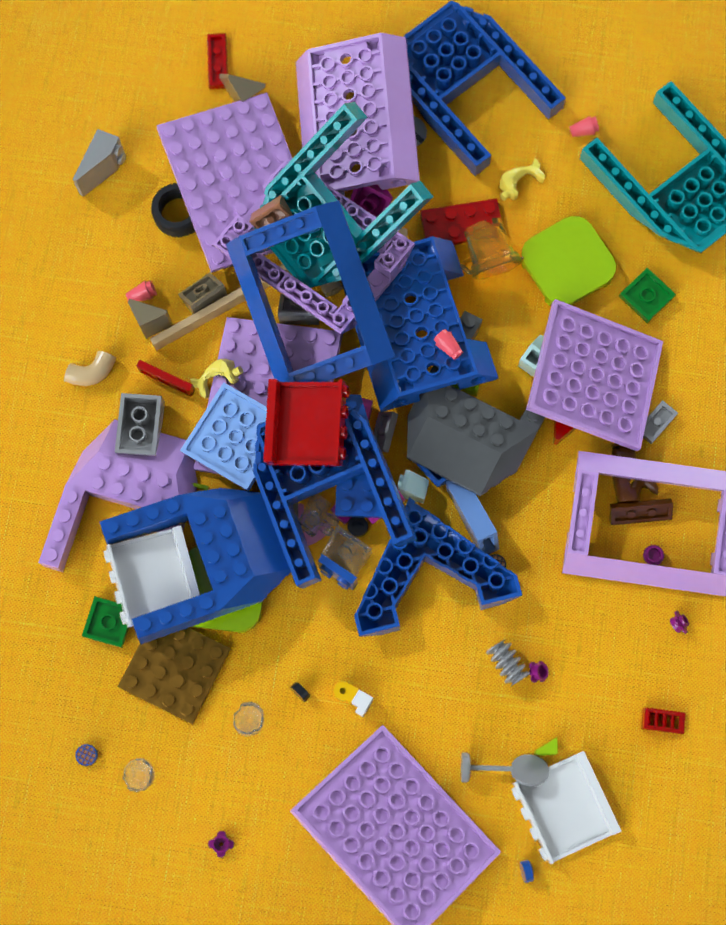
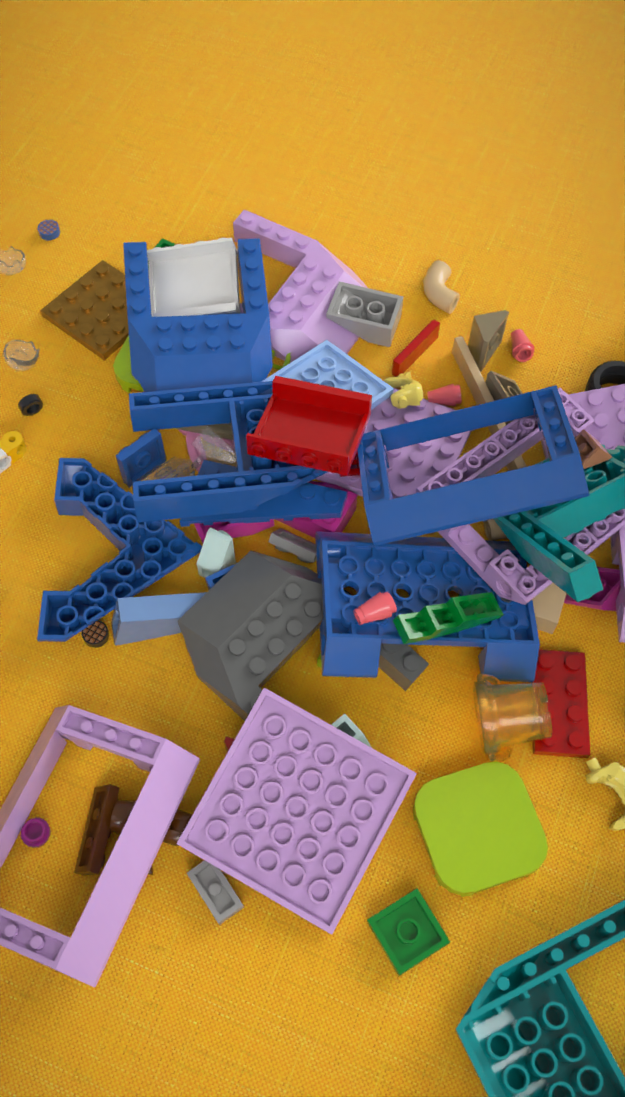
camera: 100 degrees right, 15 degrees down
(210, 345) = (446, 396): none -> coral cone
(437, 296) = (447, 618): none -> green slope

